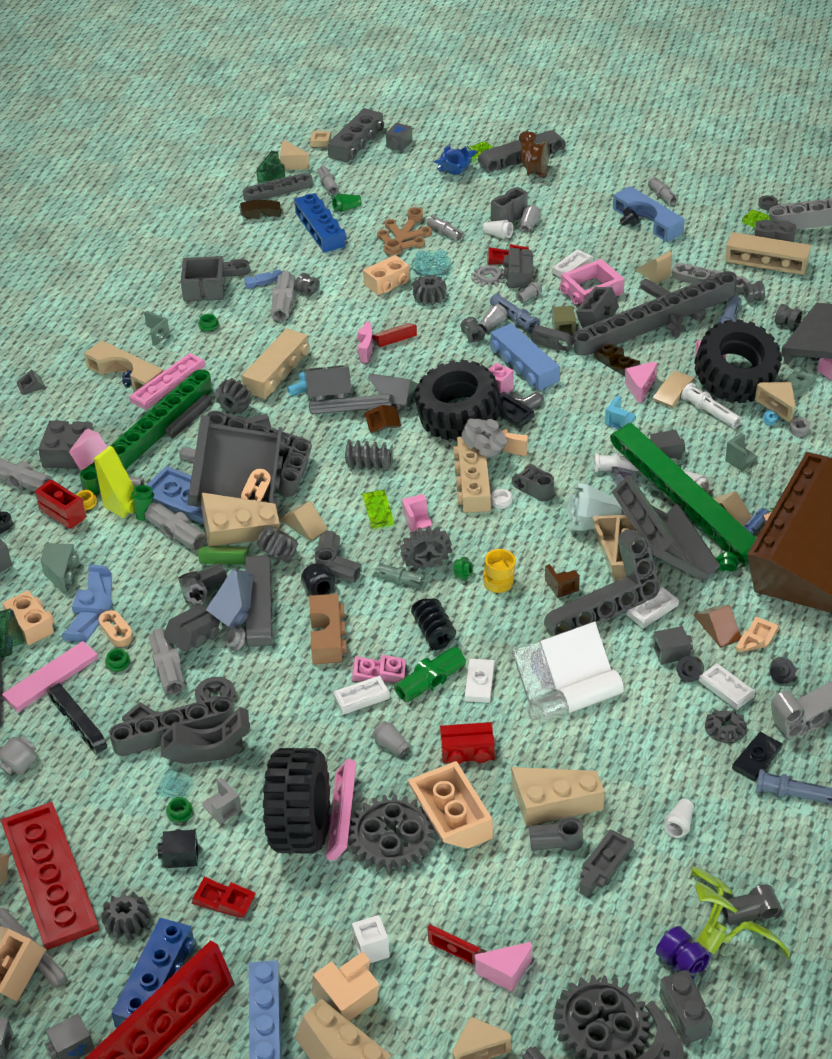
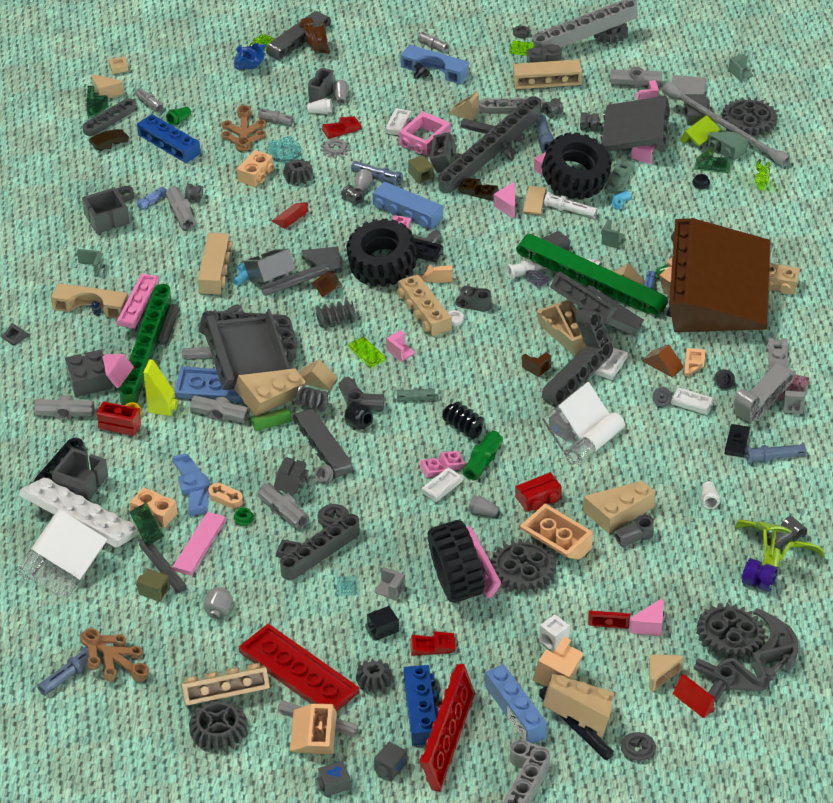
camera: 25 degrees left, 0 degrees up
(58, 564) = (148, 463): sand green slope -> none
(77, 717) = (226, 557): black beam -> none
(142, 498) = (184, 396): green cone -> none
(176, 804) = (362, 595): green plate -> none
(196, 745) = (360, 548): dark grey arch -> none
(197, 583) = (272, 444): dark grey piece -> none
(208, 322) = (131, 246): green plate -> none
(233, 396) = (199, 298): dark grey gear -> none
(233, 599) = (312, 447): sand blue slope -> none
(251, 485) = (267, 362): light nougat beam -> none
(327, 643) = (381, 436): medium nougat arch -> none
(355, 135) = (148, 54): dark grey brick -> none
(365, 340) = (274, 226): bright pink slope -> none
(399, 137) = (186, 47): dark grey brick -> none
(426, 548) = (428, 368): dark grey gear -> none
(463, 568) = (460, 376): green plate -> none
(479, 680) = (519, 449): white plate -> none
(484, 436) = (421, 273): light grey plate -> none
(499, 570) = (489, 369): yellow wheel -> none
(518, 268) = (359, 135): dark grey brick -> none
(533, 289) = (380, 150): light grey pin -> none
(550, 338) = (417, 185): dark grey piece -> none
(589, 503) = (527, 302): light aqua cone -> none
(604, 861) = (676, 537): dark grey hinge -> none
(616, 416) = (506, 233): medium azure panel -> none
(672, 644) = (640, 384): dark grey brick -> none
(685, 1007) = (778, 603): dark grey brick -> none
(728, 561) = (648, 315): green plate -> none
(731, 732) = (712, 430): dark grey gear -> none
(777, 398) = (619, 186): tan slope -> none
(799, 432) = (642, 208): light grey bush -> none

